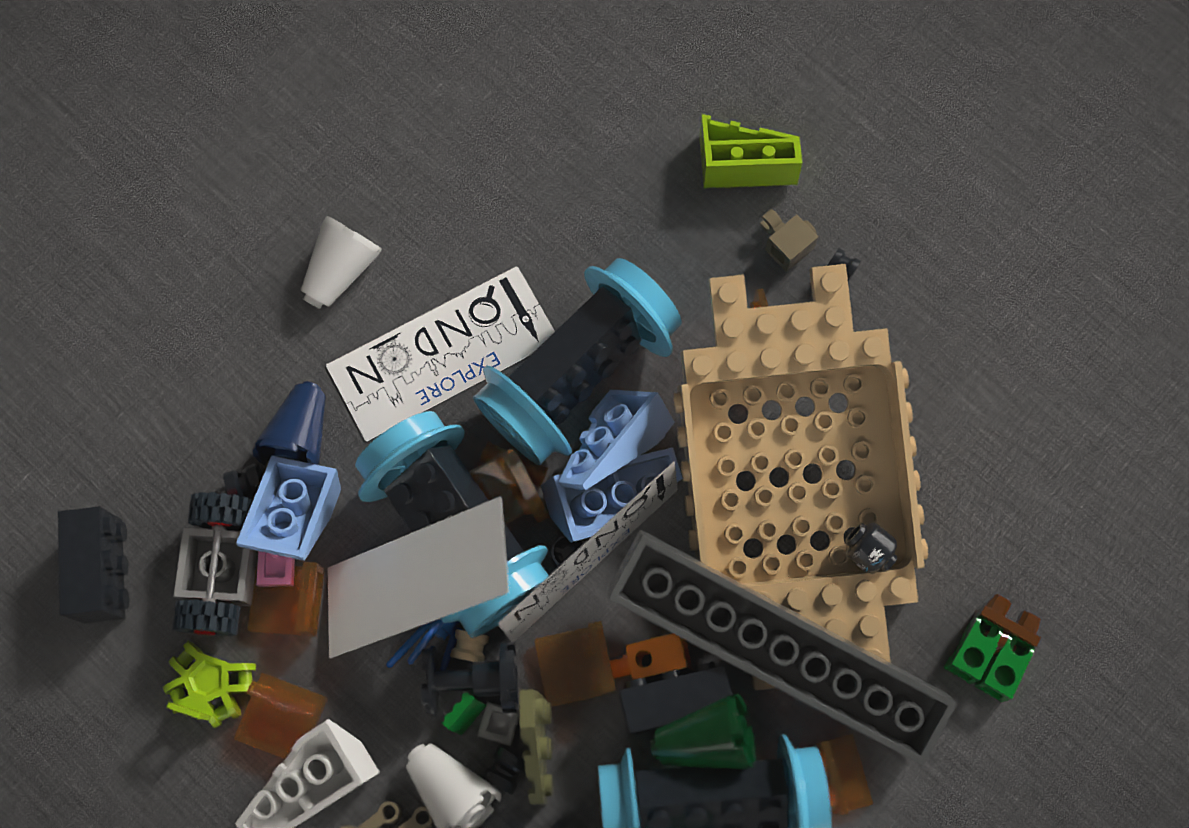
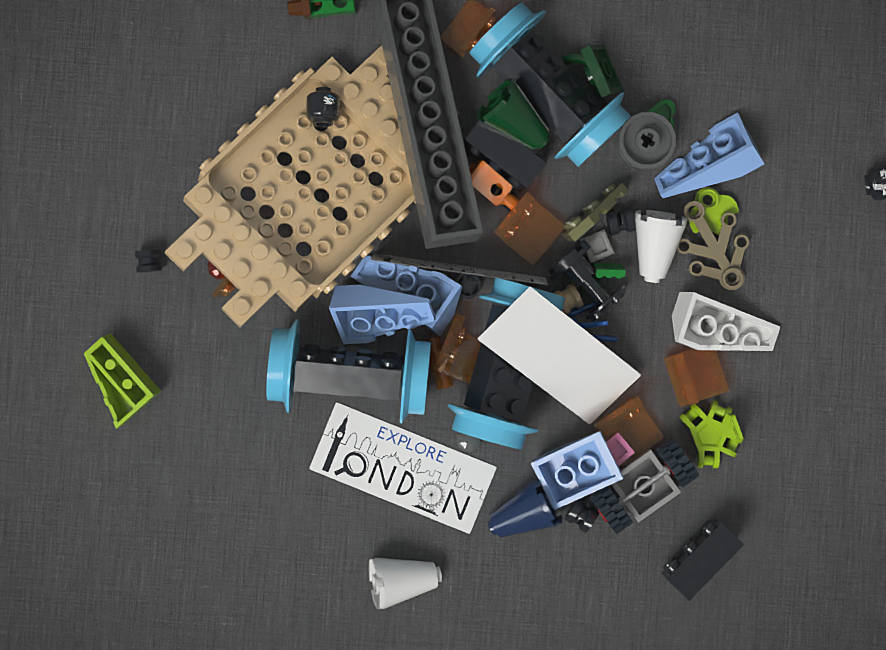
camera: 130 degrees left, 15 degrees up
(788, 241) = (156, 307): dark tan brick -> none

